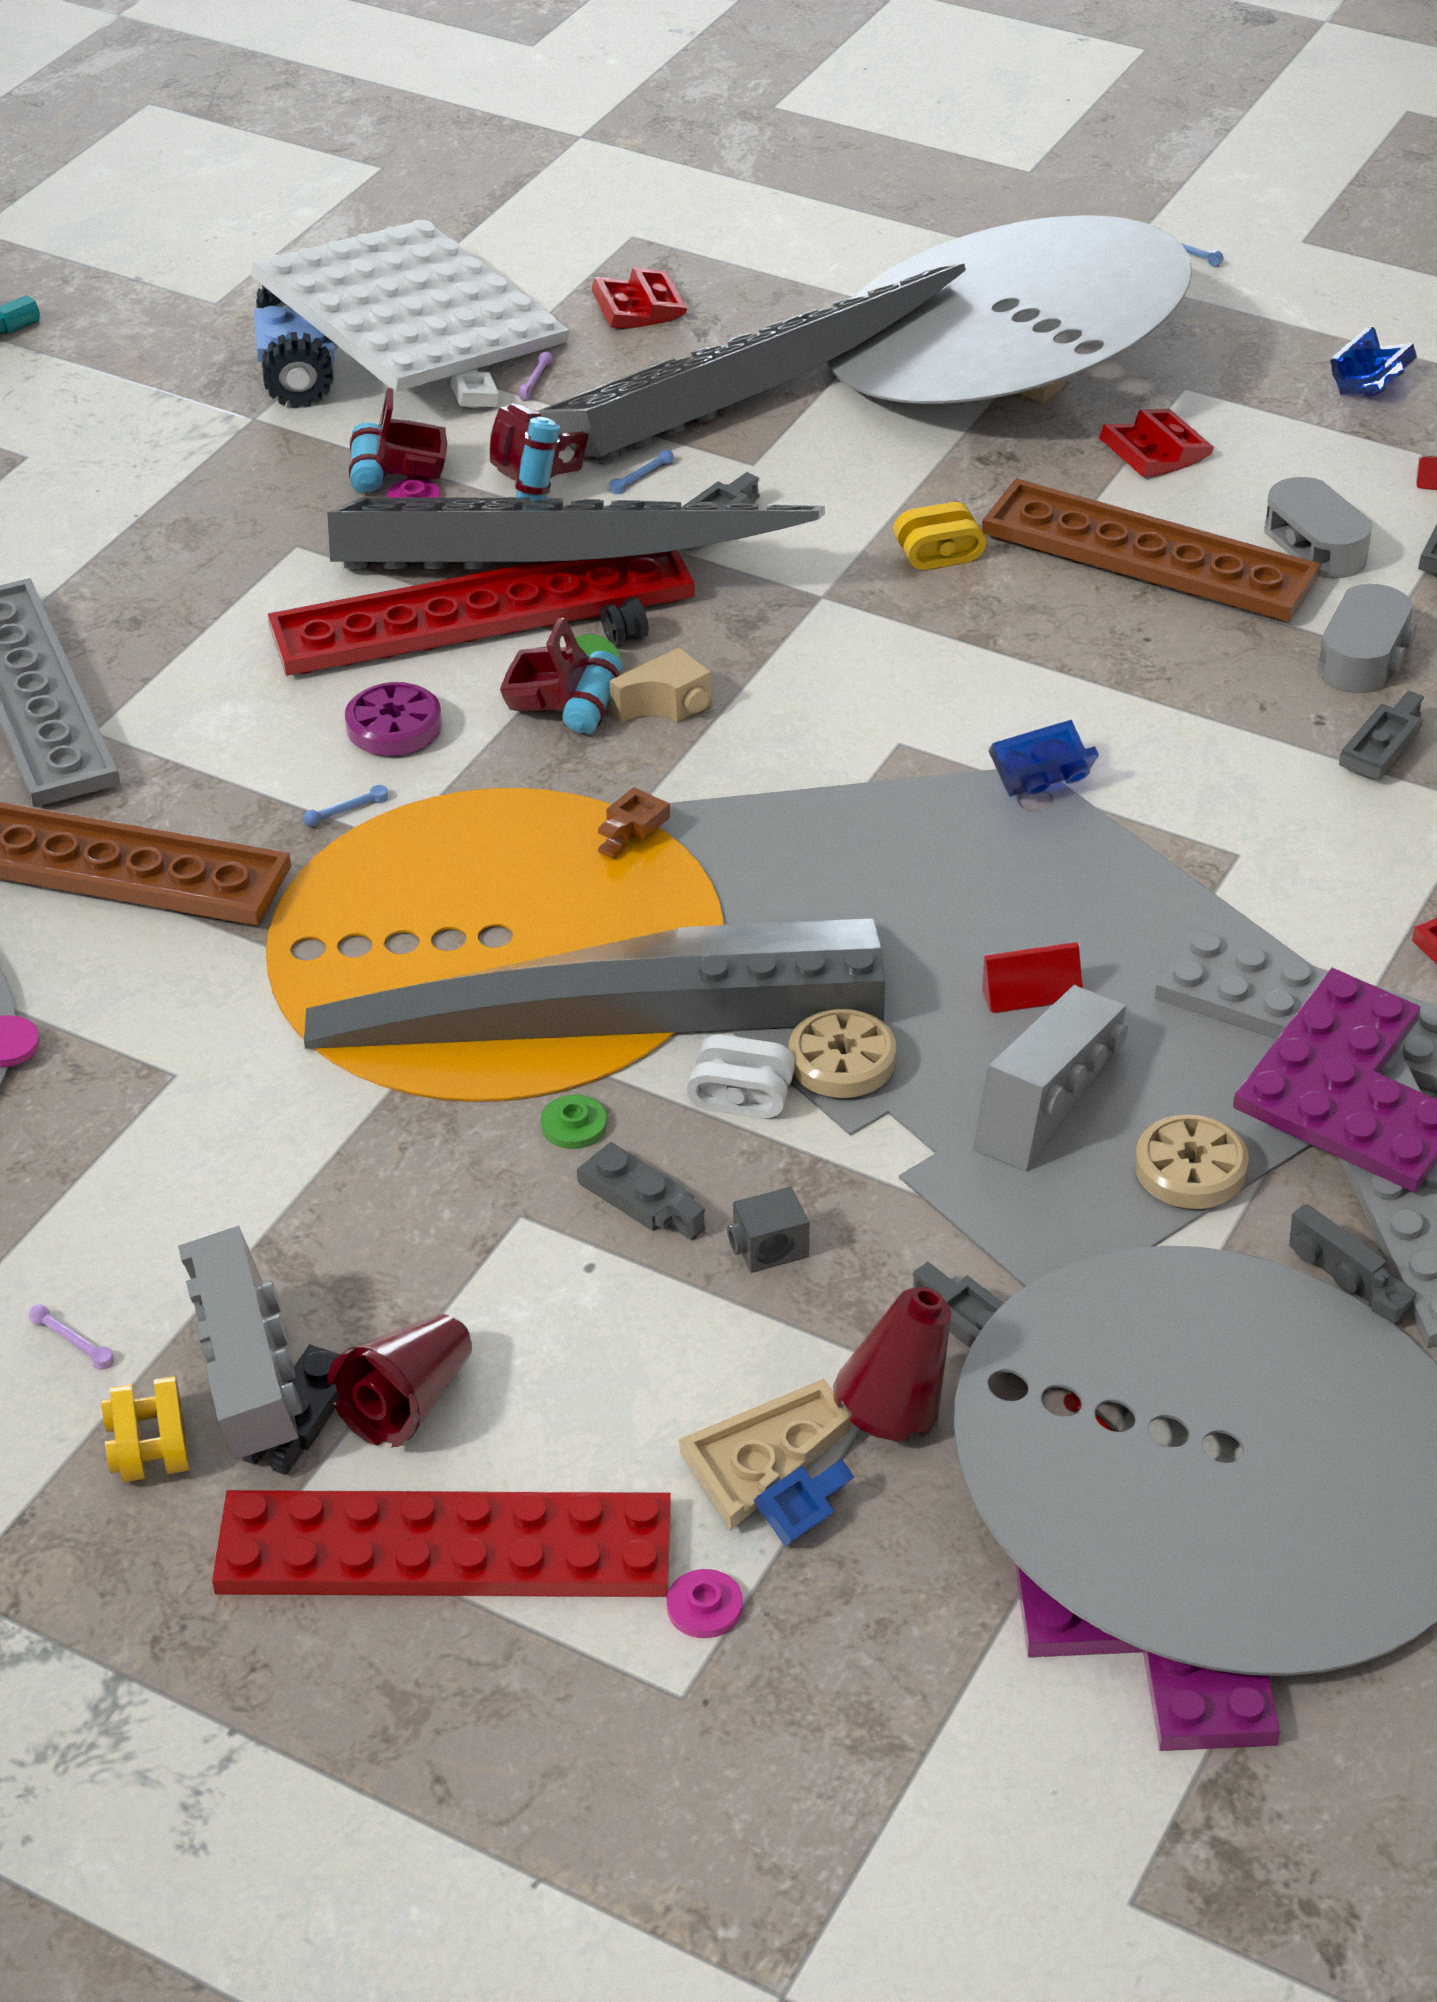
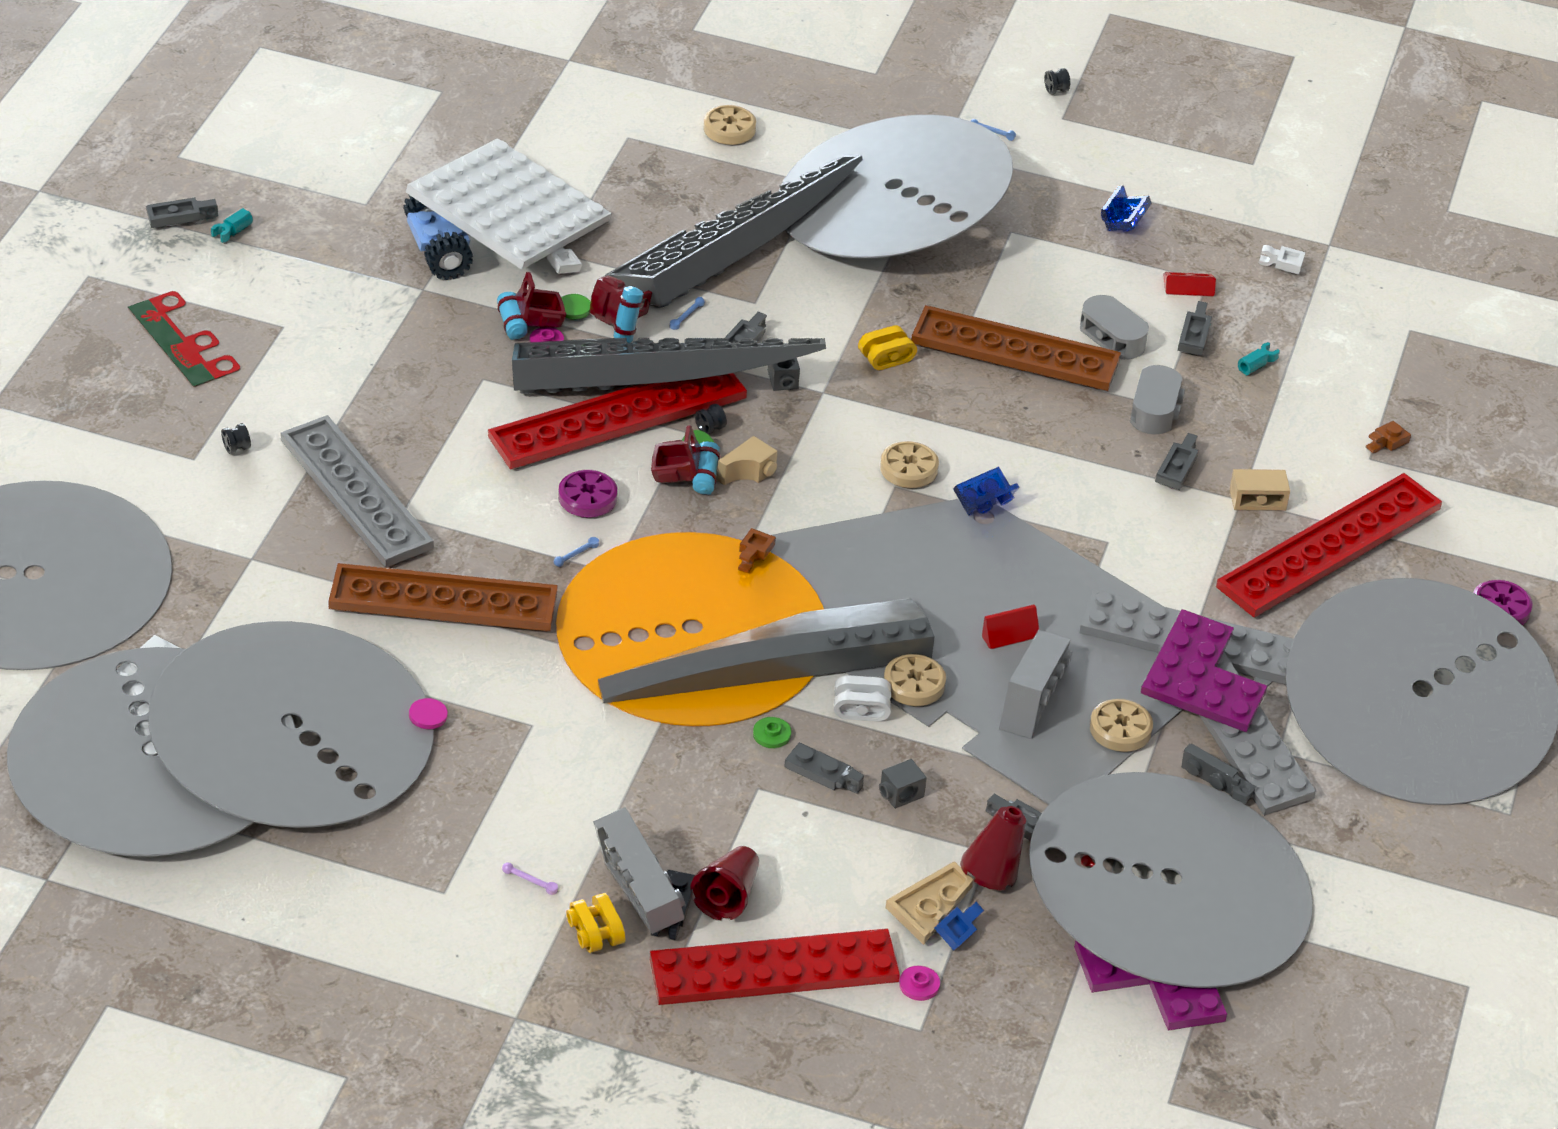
camera: 15 degrees left, 0 degrees up
(468, 452) = (576, 306): none -> bright green piece
(545, 359) = (600, 234): lavender hinge -> none
(640, 301) = (648, 187): red slope -> none
(763, 561) = (784, 375): none -> dark grey brick
(787, 224) = (729, 124): none -> tan wheel
(929, 710) = (909, 464): none -> tan wheel
(1156, 442) = (1003, 273): red slope -> none
(1303, 188) = (1057, 80): none -> black wheel

